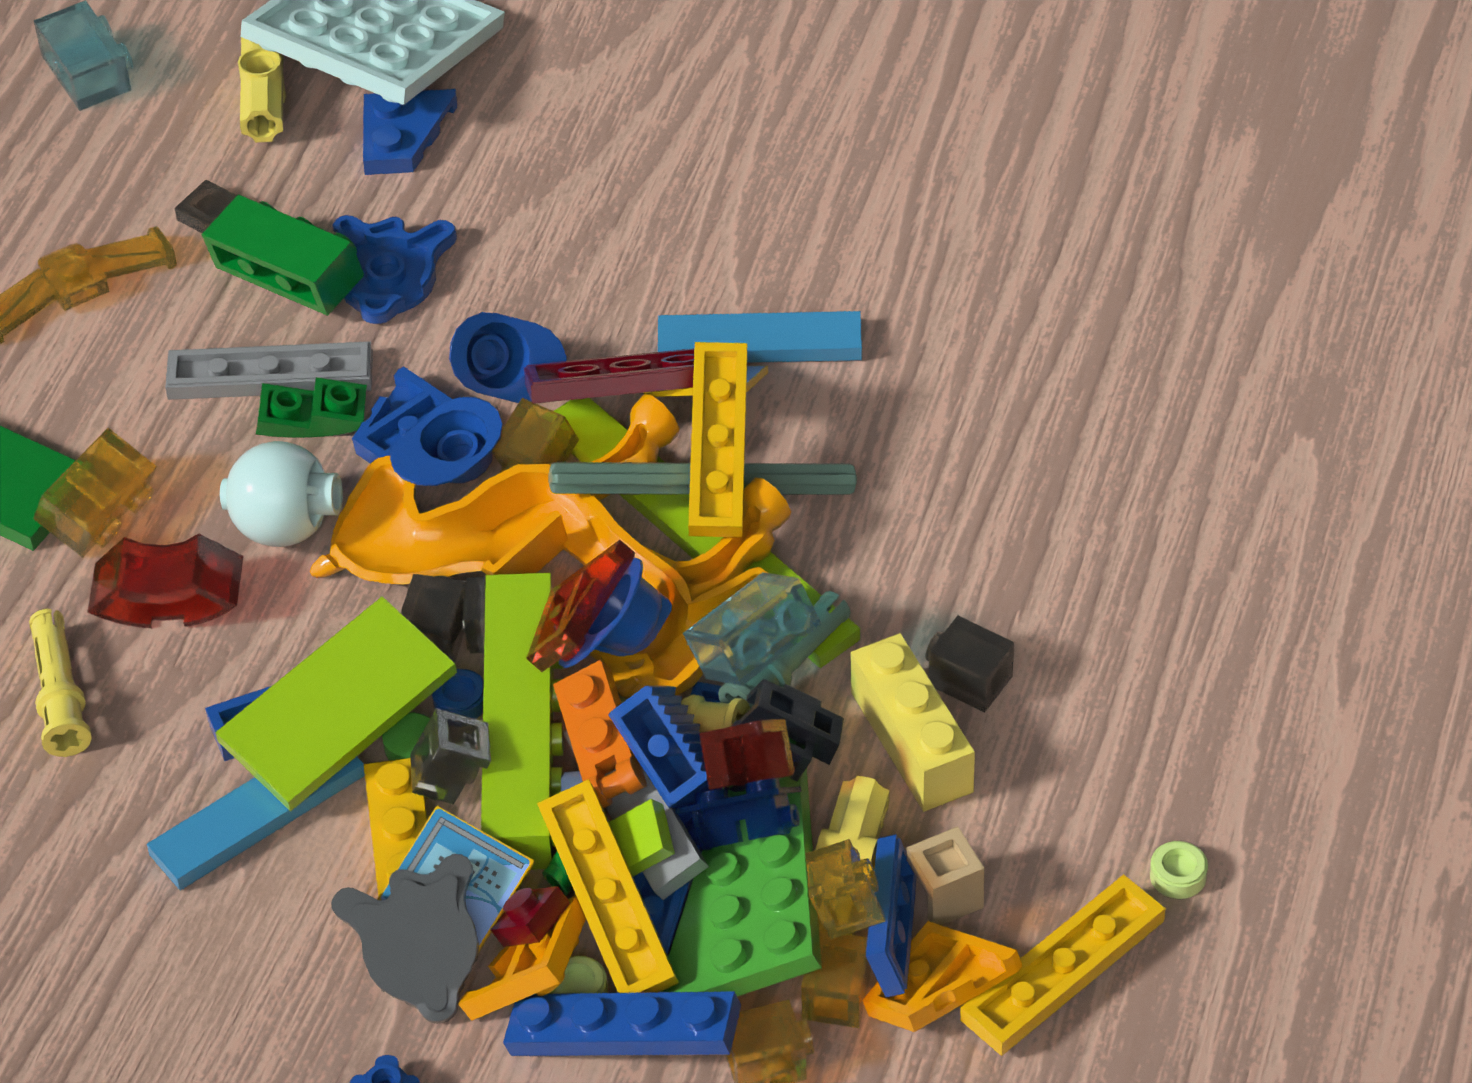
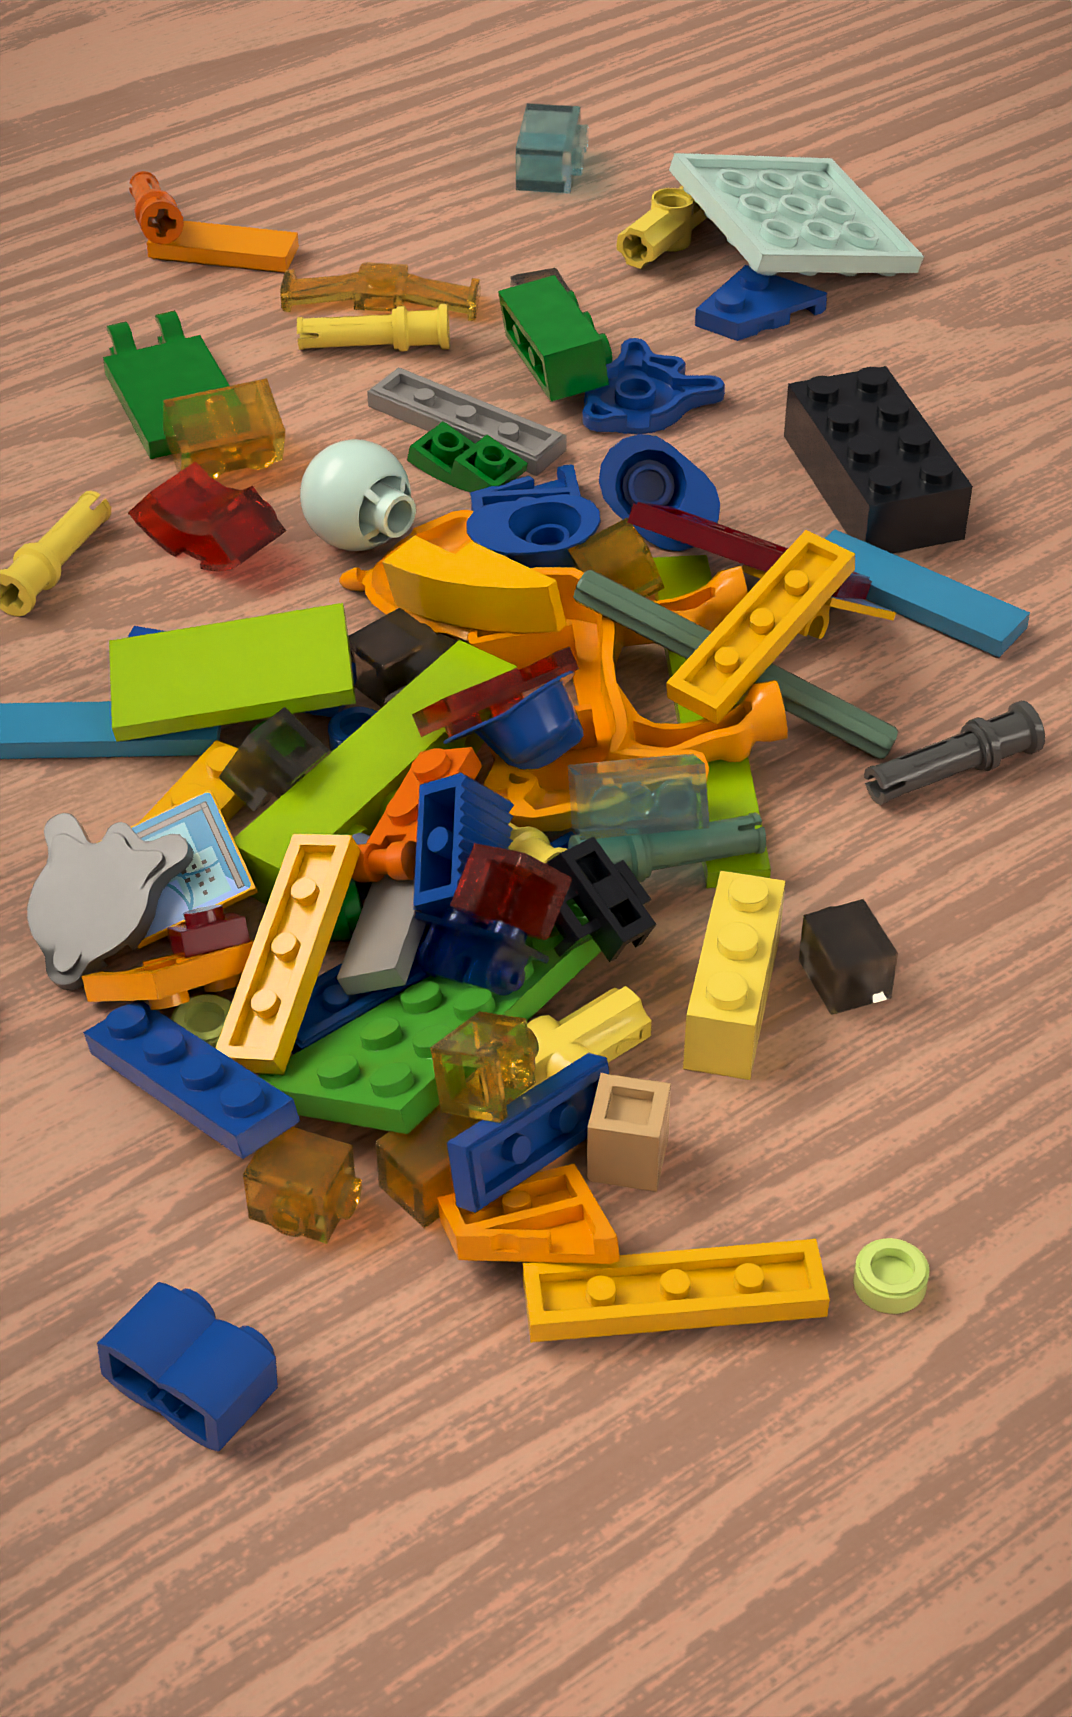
camera: 35 degrees right, 5 degrees down
(133, 312) = (400, 328): none -> light yellow pin
(467, 527) = (473, 588): none -> yellow slope
(639, 235) = (877, 460): none -> black brick
(643, 836) = (365, 920): lime tile -> none
(916, 445) = (977, 746): none -> dark grey pin

